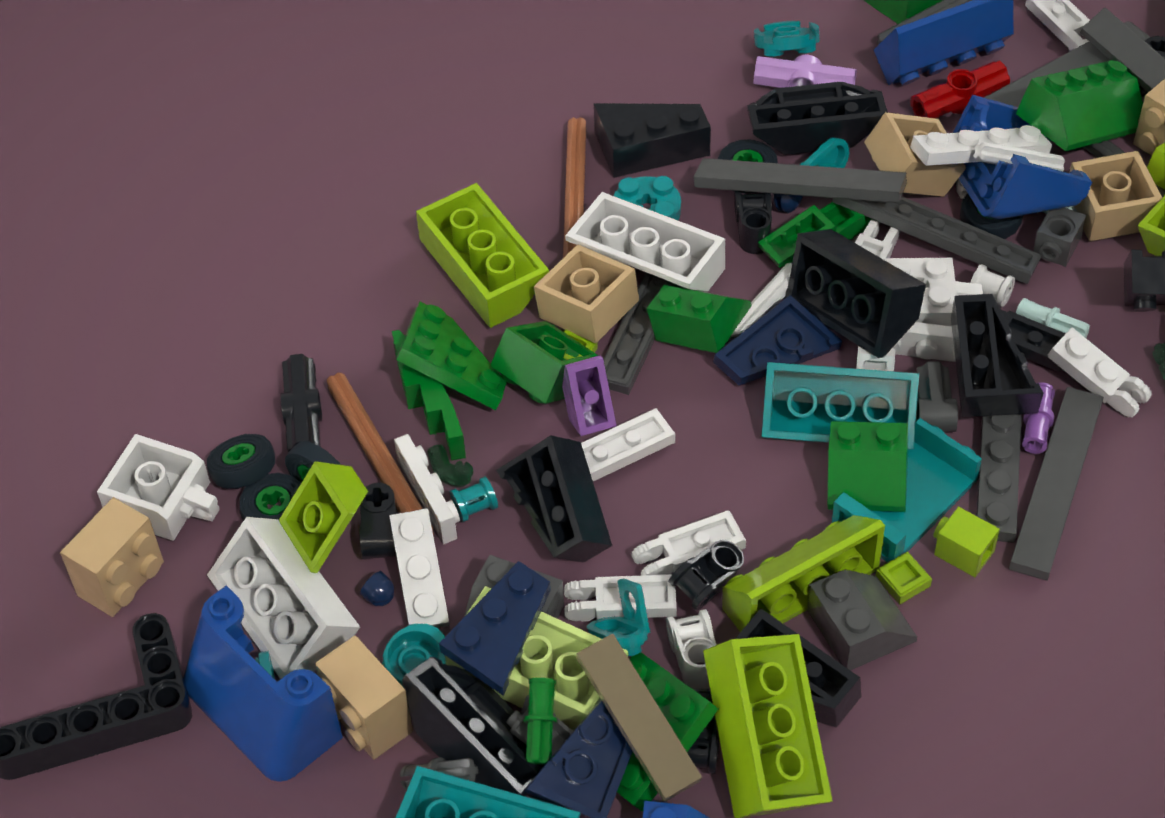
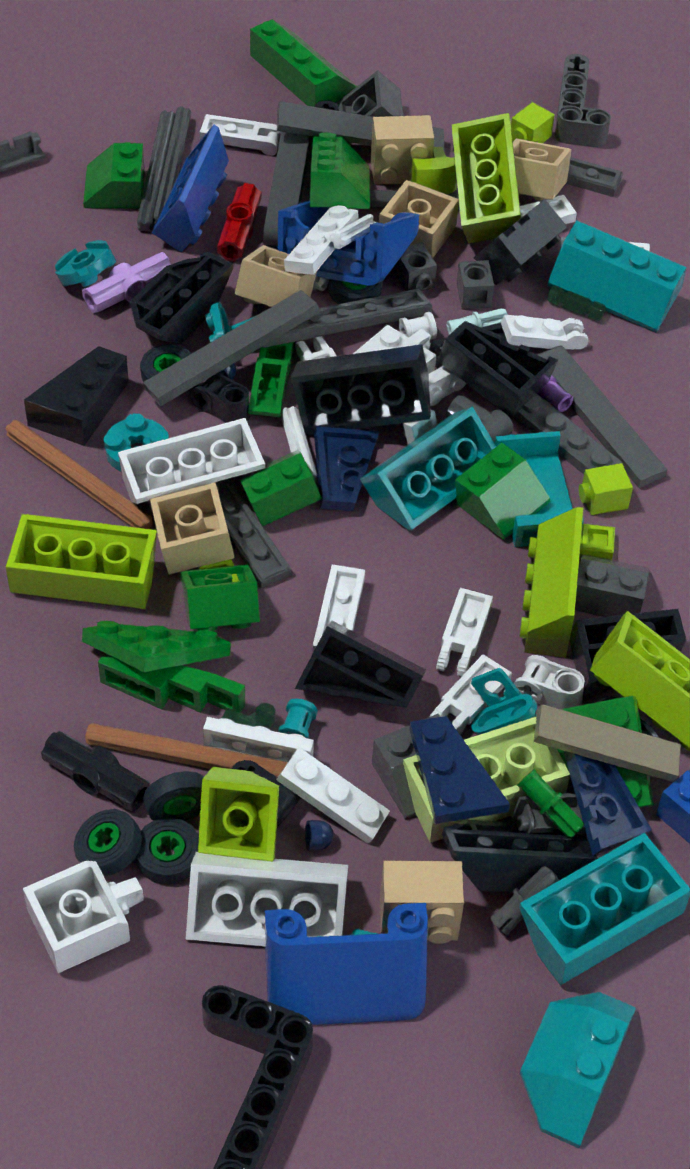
camera: 55 degrees left, 0 degrees up
(112, 557) = (125, 983): tan brick -> none
(411, 648) = (402, 841): teal piece -> none
(588, 396) = (292, 592): medium lavender slope -> none
(708, 572) = (506, 633): black piece -> none
(1094, 287) = (475, 284): none -> dark grey brick

